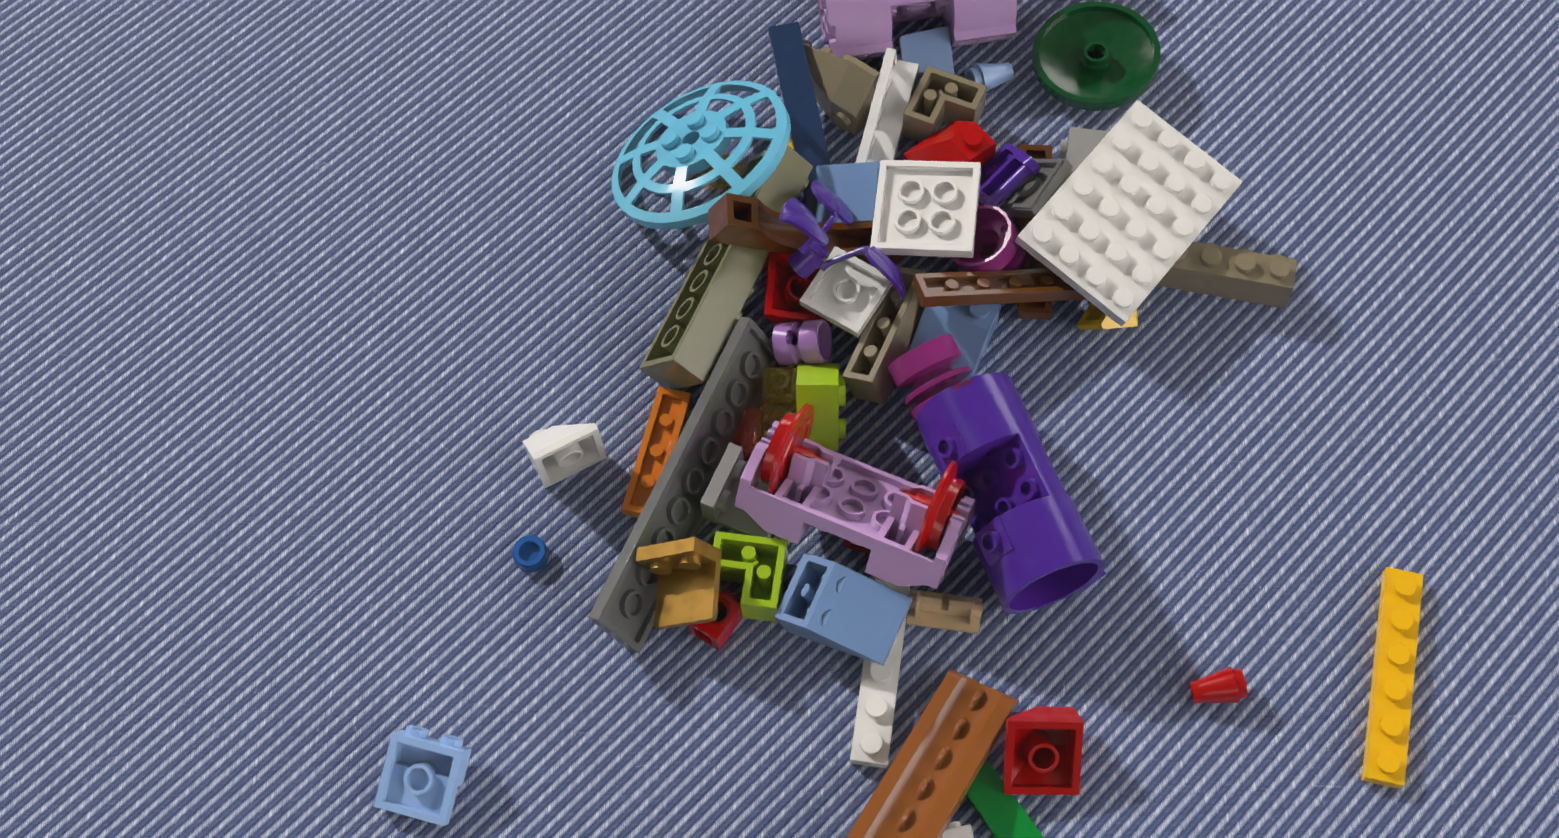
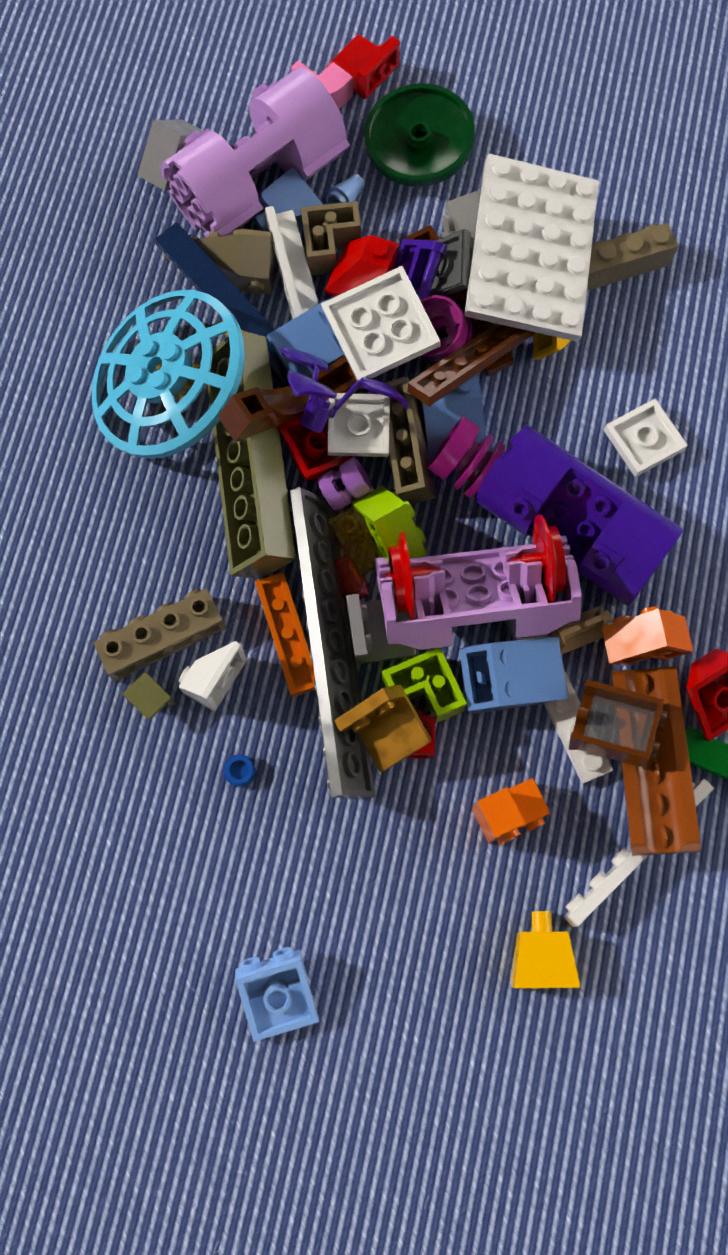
camera: 35 degrees left, 10 degrees up
(491, 435) = (147, 696): none -> olive panel
(540, 387) = (159, 634): none -> dark tan brick
(754, 739) = (510, 810): none -> orange brick
(913, 715) = (618, 724): none -> window
(1007, 651) = (646, 636): none -> orange brick
(1139, 461) = (645, 437): none -> white plate

